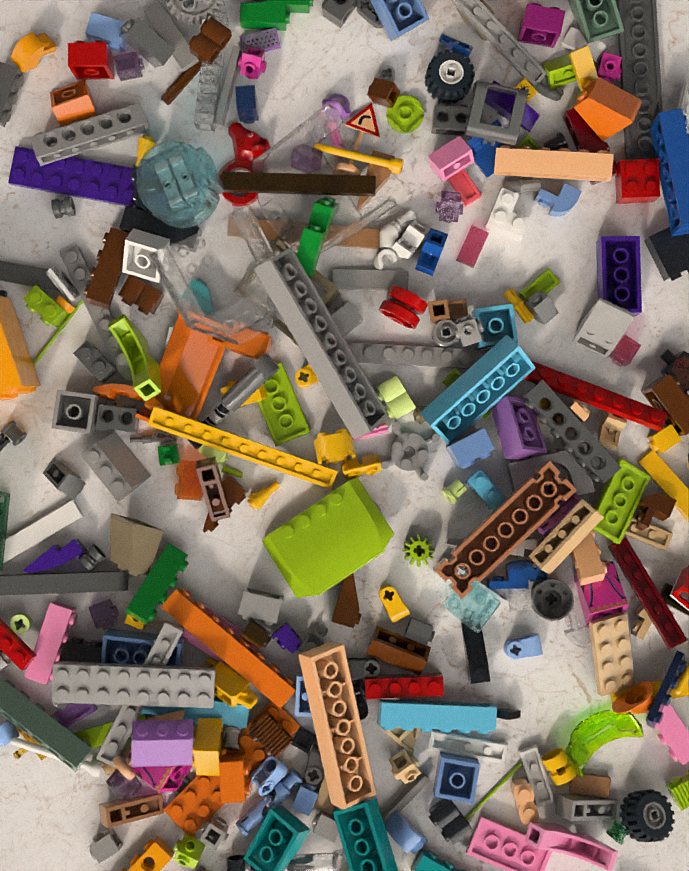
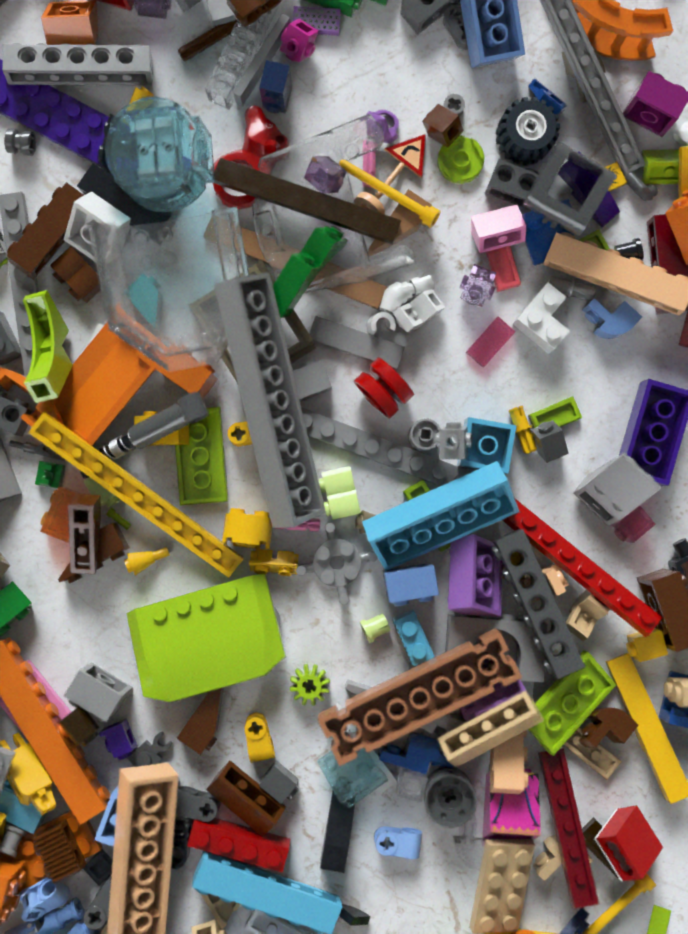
camera: 15 degrees right, 0 degrees up
(431, 251) = (439, 332): blue brick -> none
(447, 310) = (435, 408): medium nougat brick -> none

